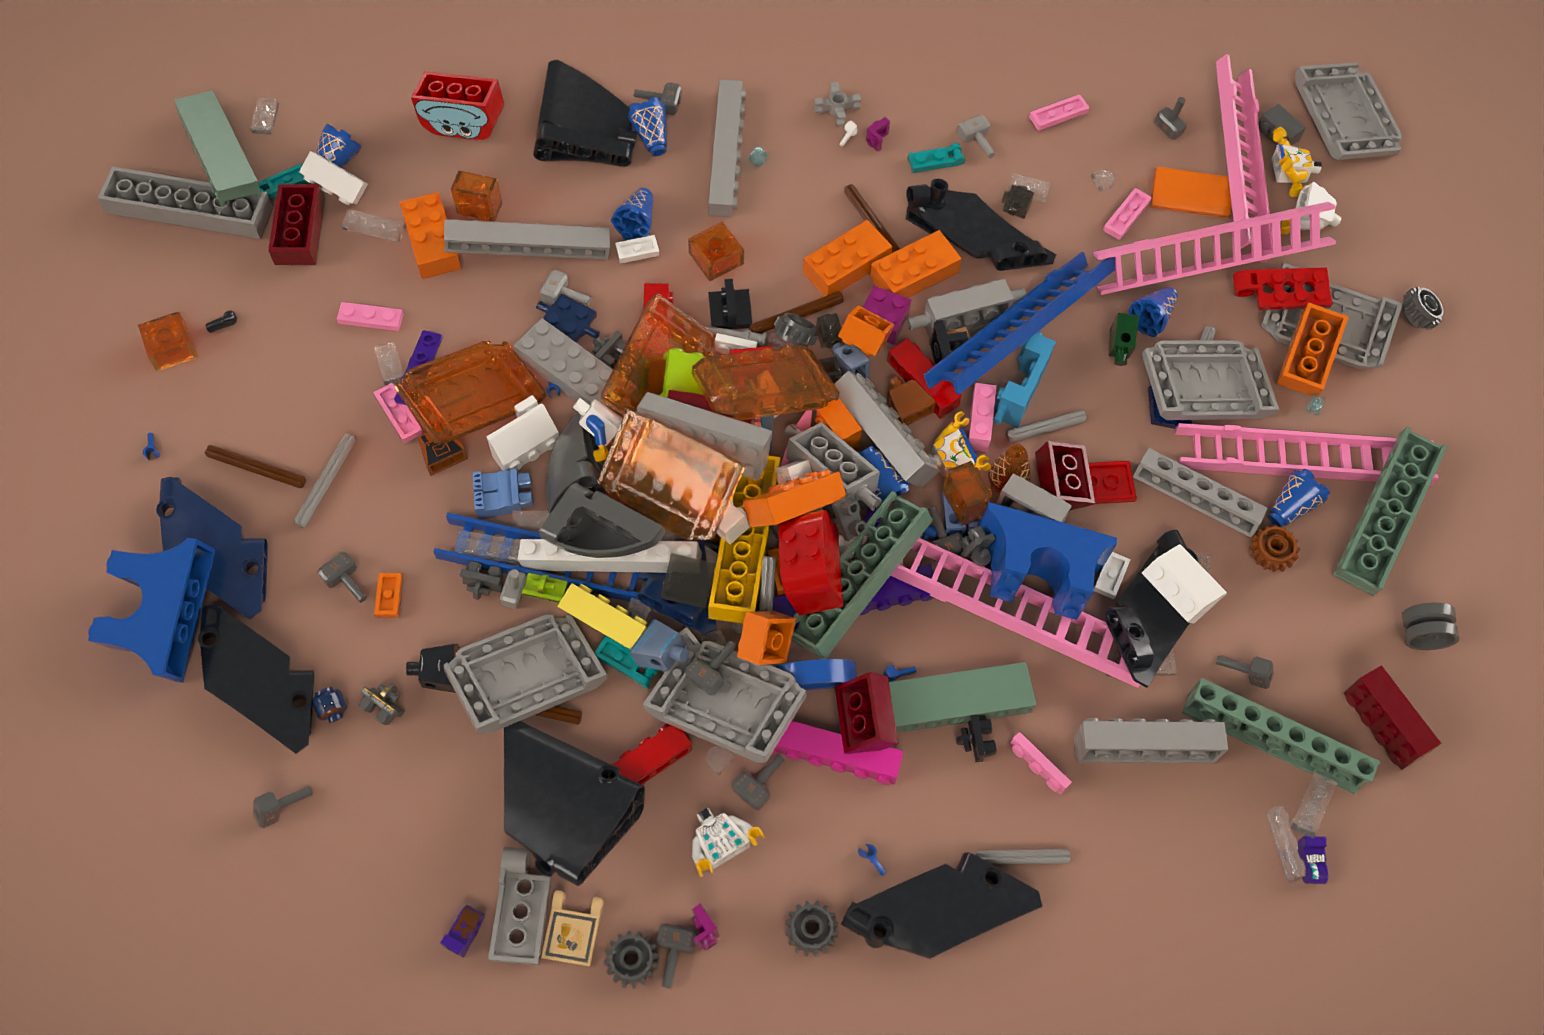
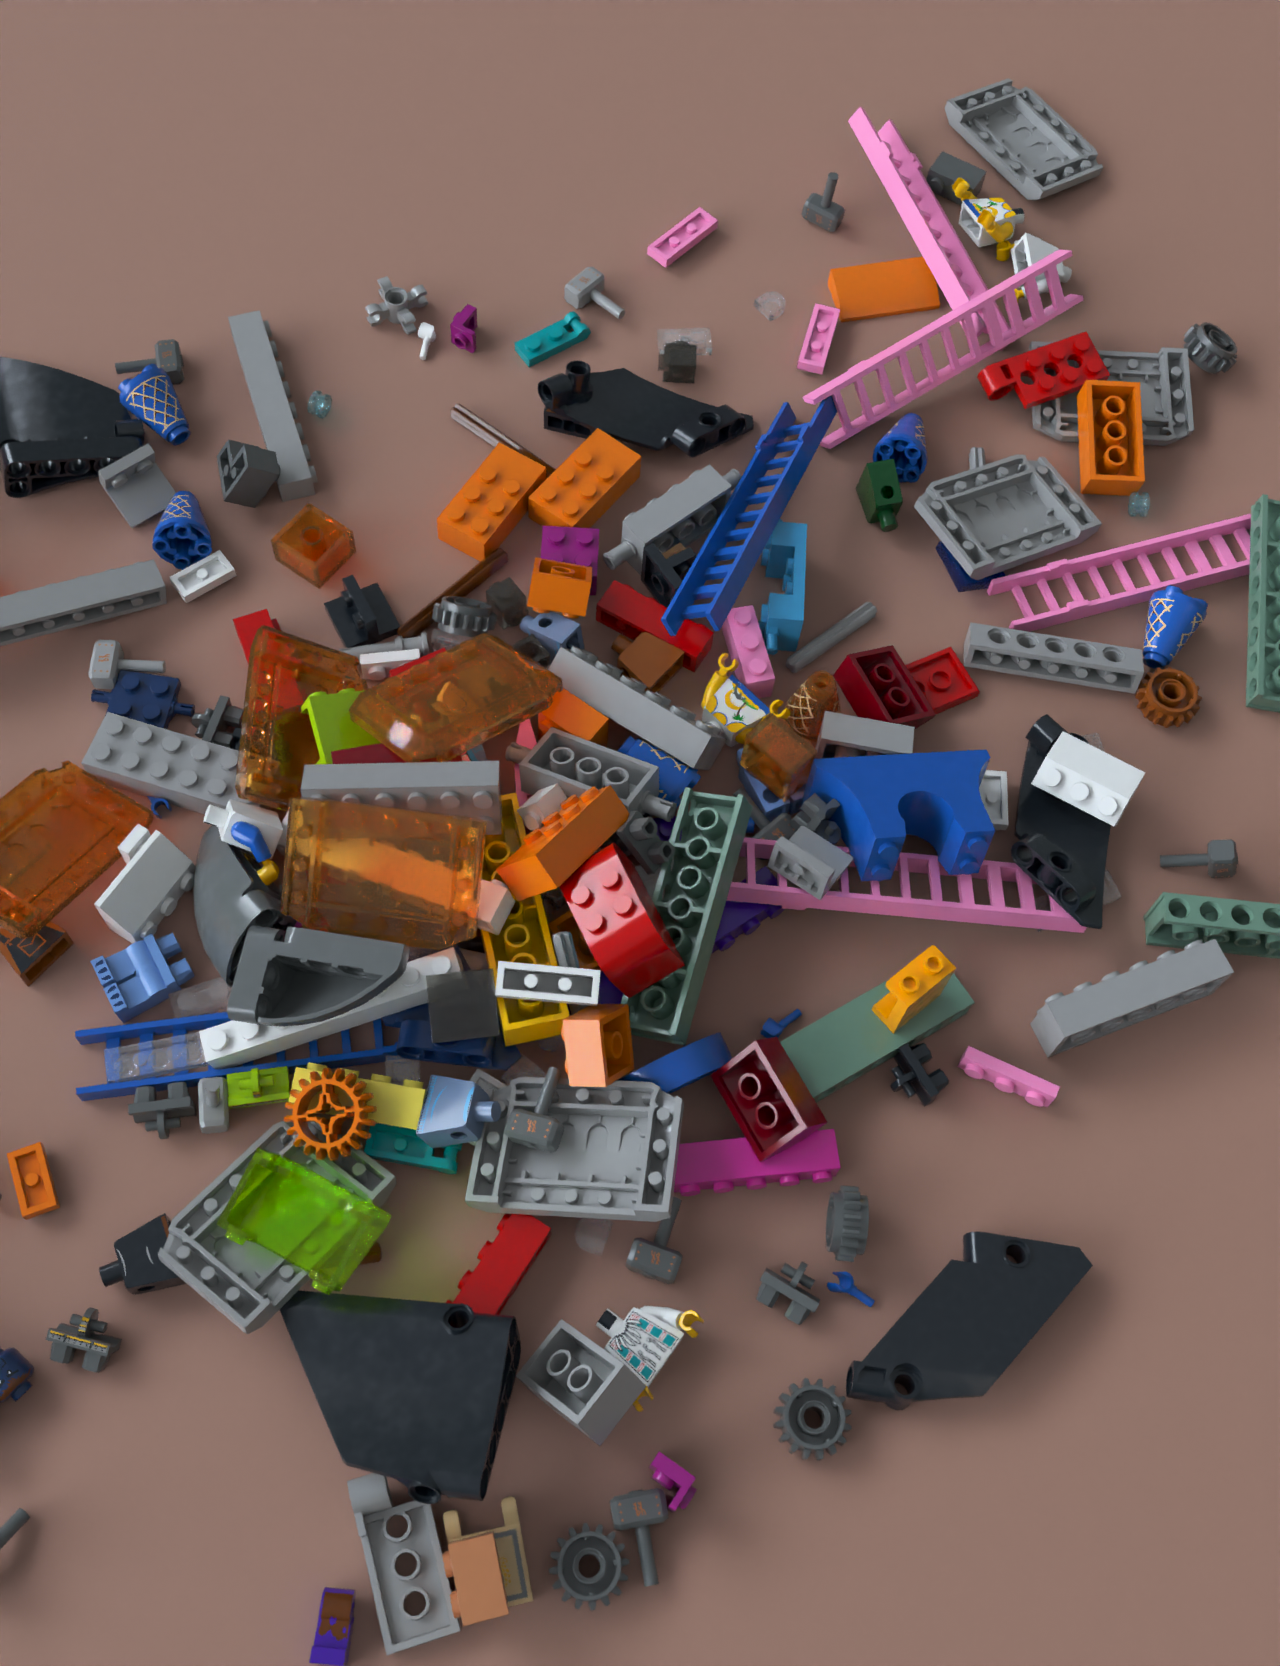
camera: 25 degrees left, 0 degrees up
(538, 677) = (303, 1219): none -> clear neon green windscreen
(558, 934) = (477, 1579): none -> nougat brick
(583, 602) = (332, 1126): none -> orange gear
(617, 176) = (137, 486): none -> light grey bracket
(670, 843) = (581, 1381): none -> light grey brick
(690, 188) = (246, 472): none -> dark grey brick
(746, 585) = (547, 983): none -> white brick
(823, 836) = (802, 1301): none -> dark grey hips
(885, 814) = (847, 1223): none -> dark grey gear
(958, 569) = (809, 861): none -> light grey bracket
(993, 678) = (914, 988): none -> light orange panel
(1039, 856) = (1038, 1207): light grey axle -> none

